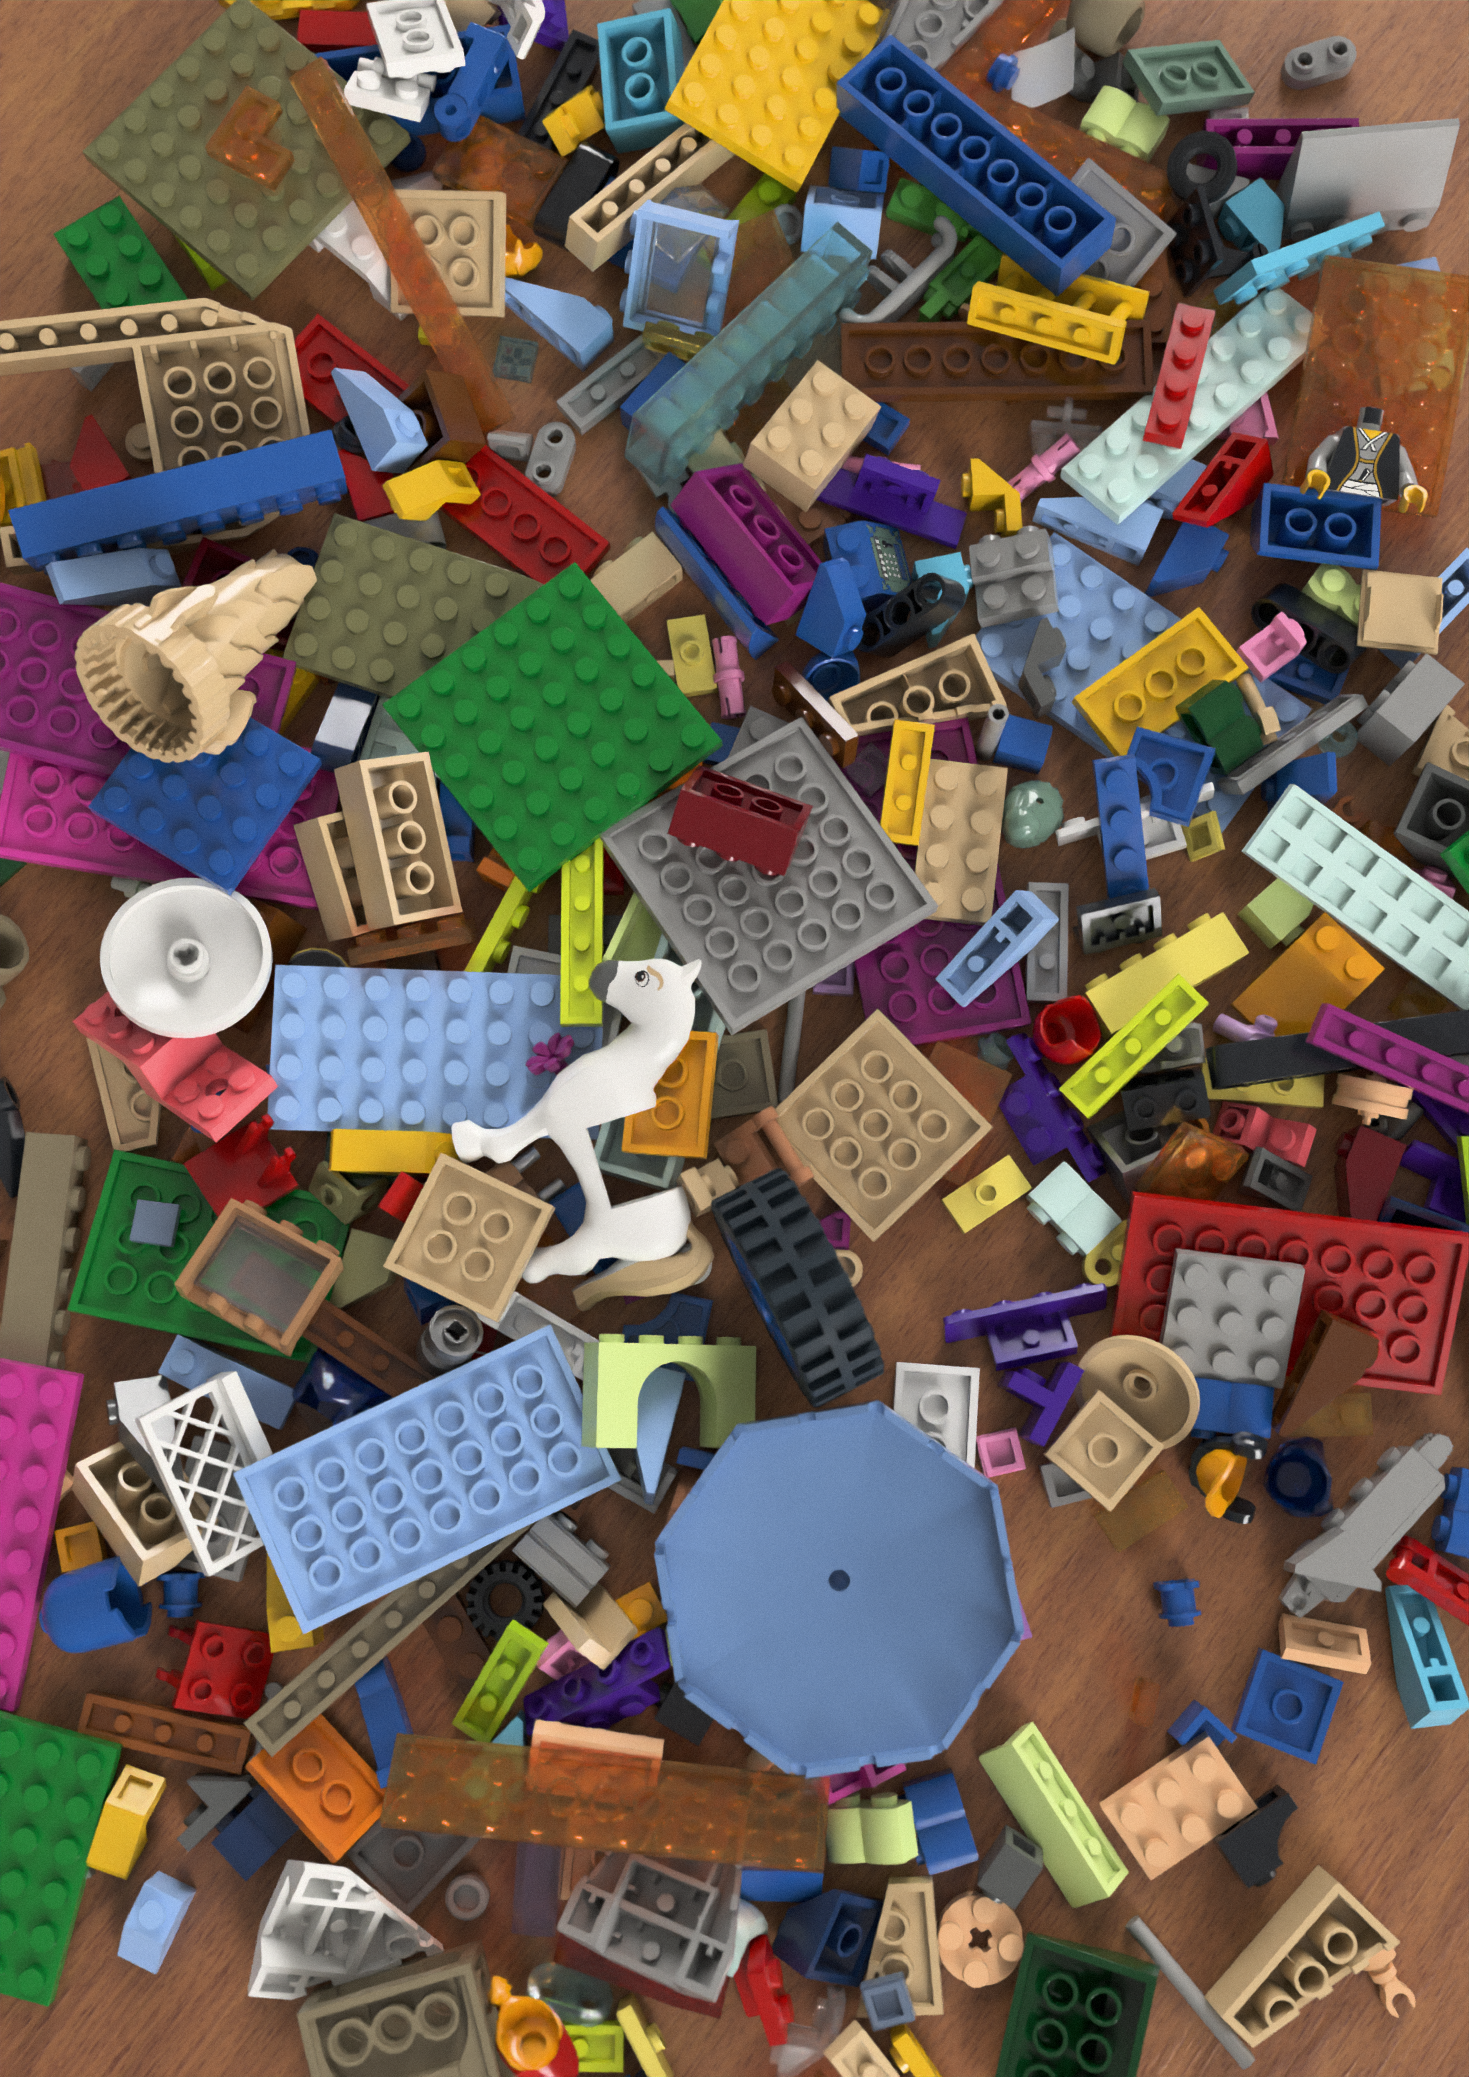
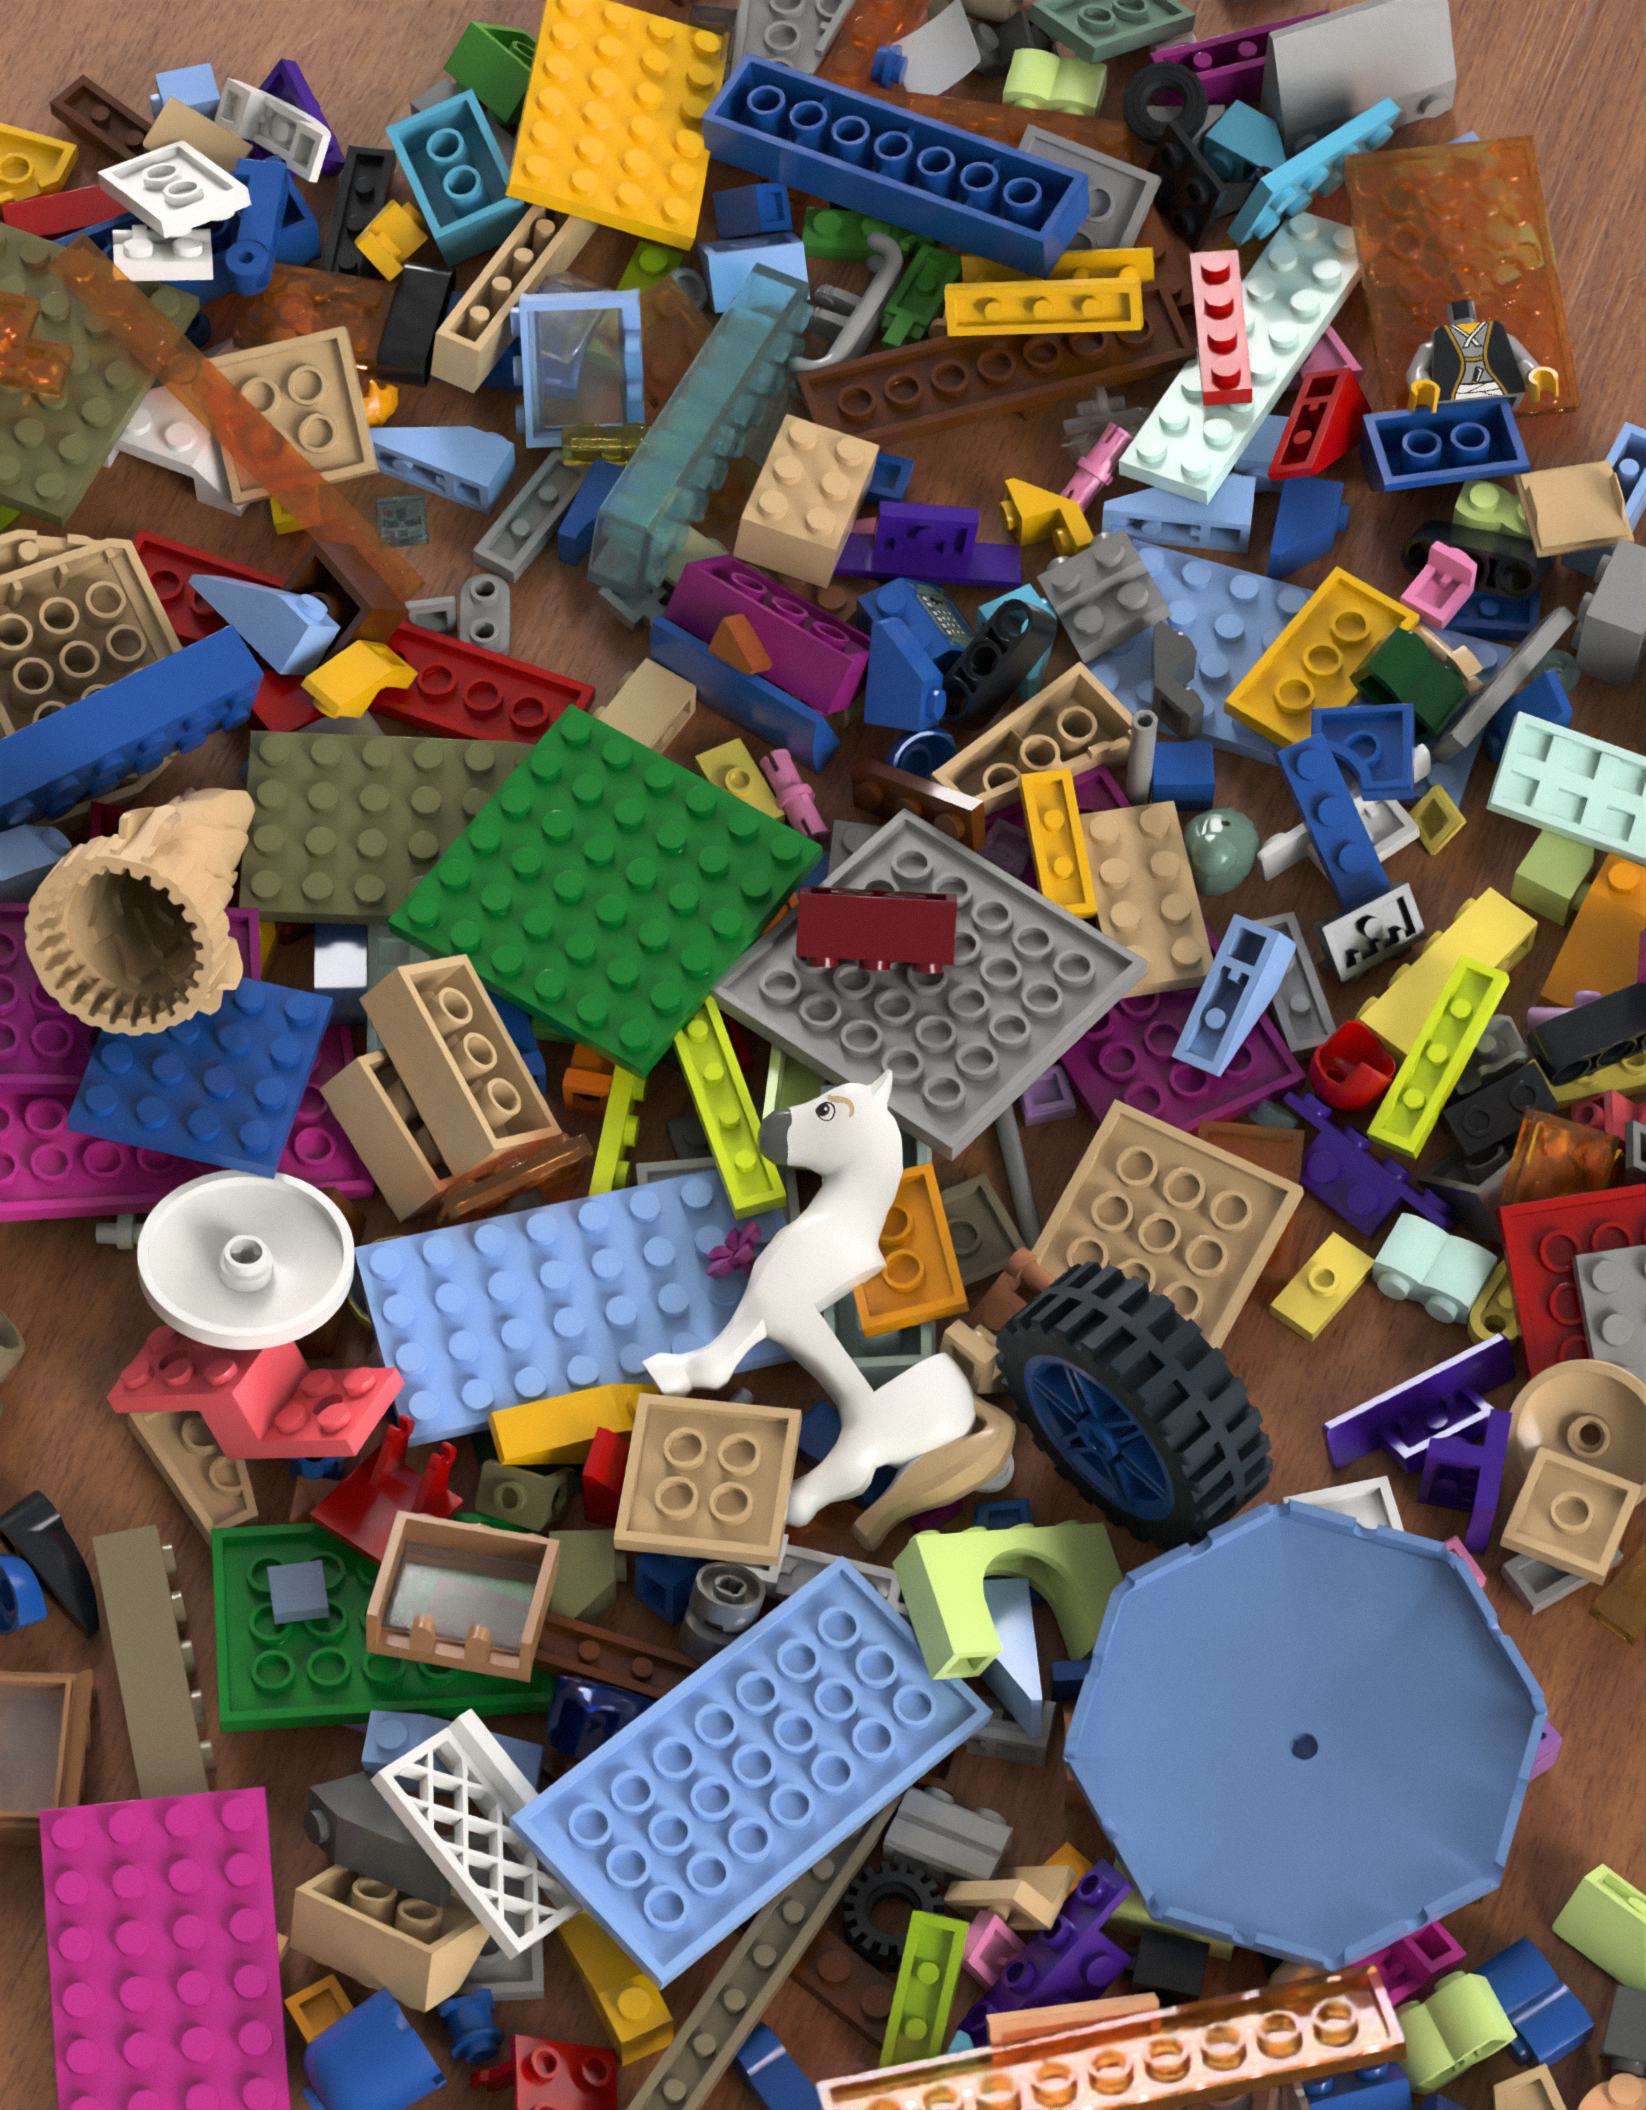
camera: 20 degrees left, 20 degrees down
(714, 553) = (739, 646): none -> dark orange slope

